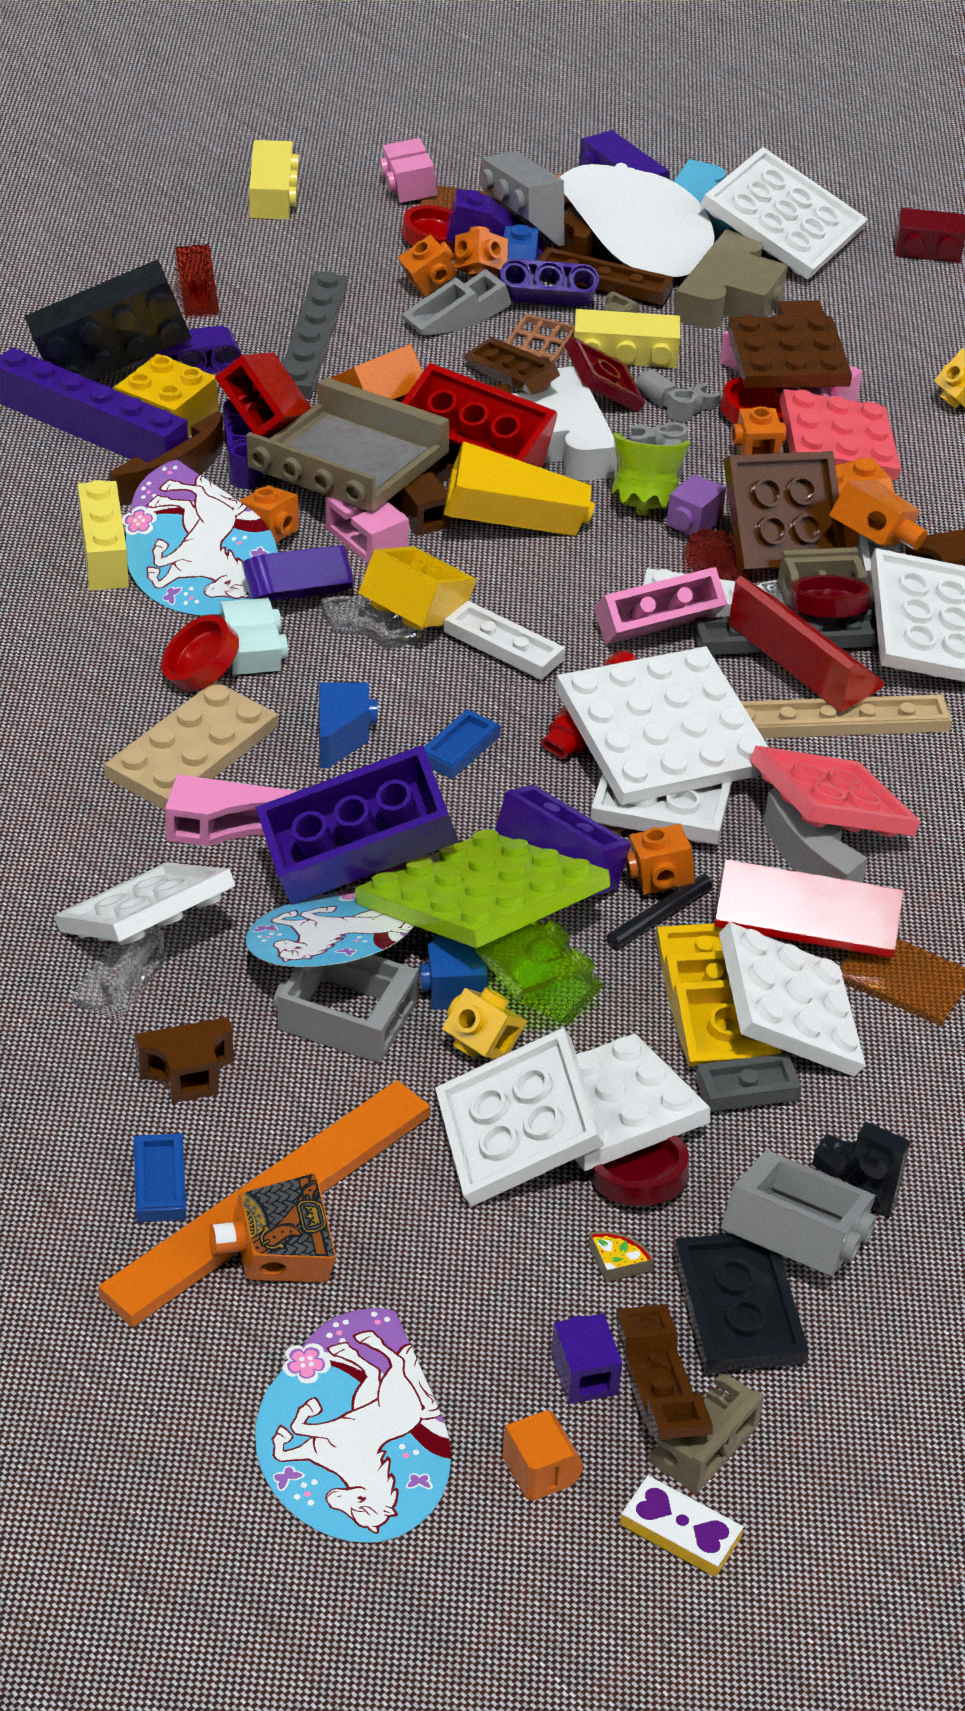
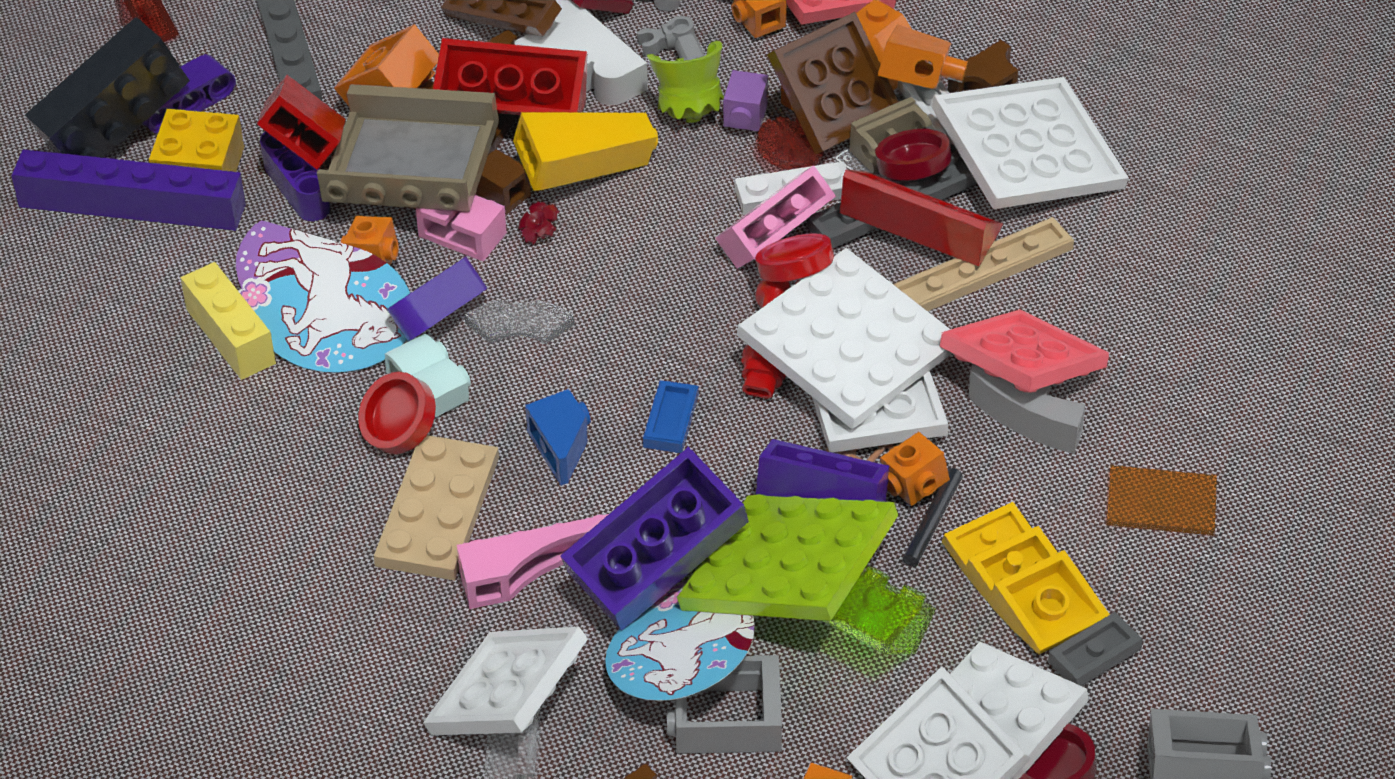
camera: 20 degrees left, 5 degrees up
(196, 453) = (224, 244): reddish brown slope -> none
(415, 586) = (554, 275): yellow brick -> none
(441, 544) = (538, 222): none -> dark red plant
(449, 970) = (803, 647): blue slope -> none
(483, 1023) = (870, 680): yellow brick -> none
(504, 640) = (652, 297): white plate -> none
(652, 640) = (794, 257): none -> red piece
(791, 999) = (1095, 562): white plate -> none
(809, 908) = (1060, 472): slope -> none
(871, 1163) = (1243, 691): black hinge -> none

